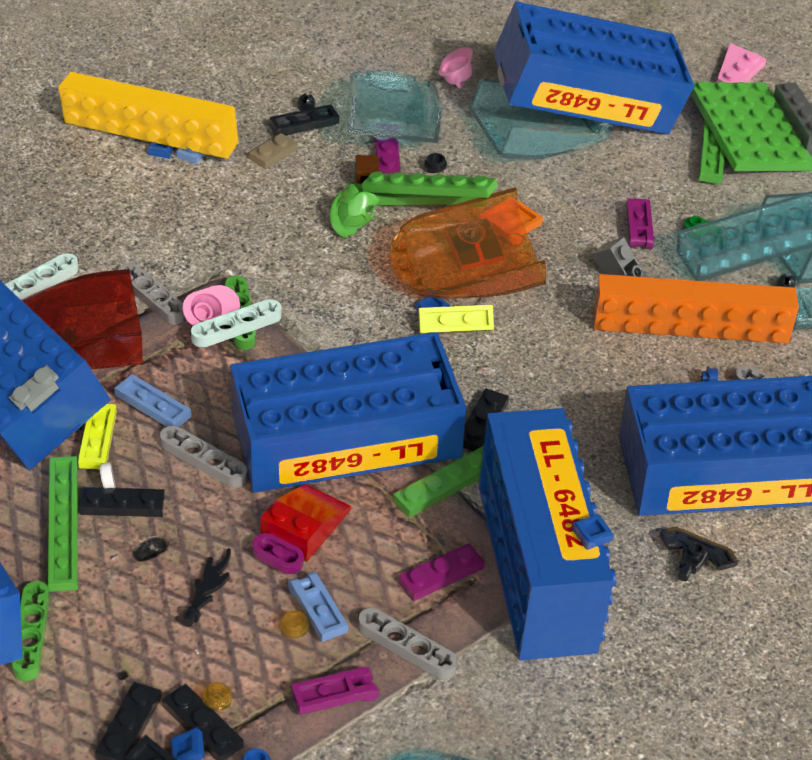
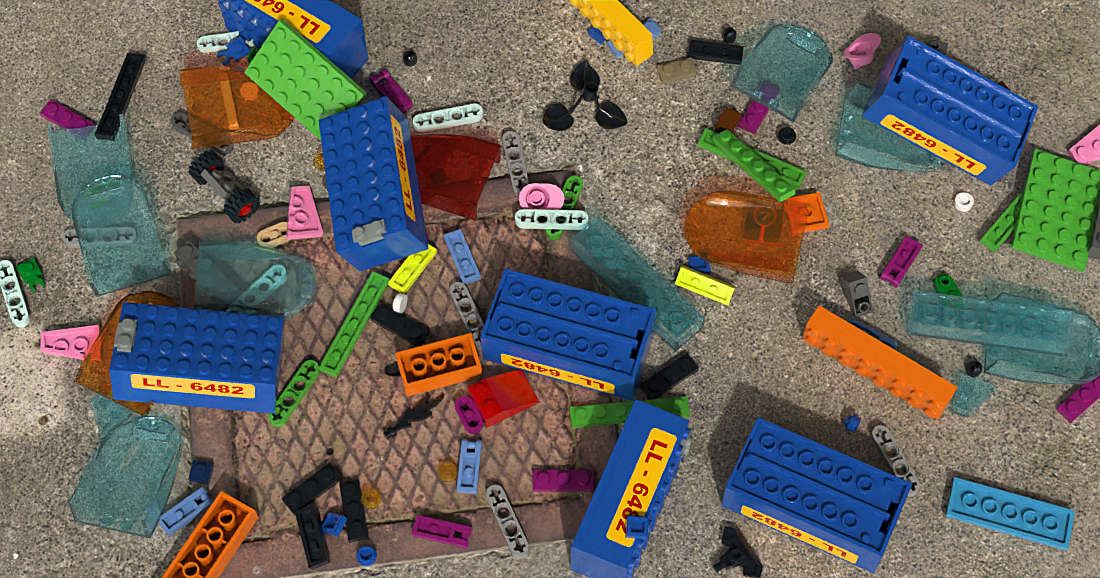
camera: 35 degrees right, 20 degrees up
(173, 191) = (585, 79): none -> black plant
(204, 514) = (439, 364): none -> orange brick
(322, 325) = (636, 282): none -> clear light blue brick
(351, 210) = (689, 156): bright green helmet -> none
(655, 155) = (963, 202): none -> white tile

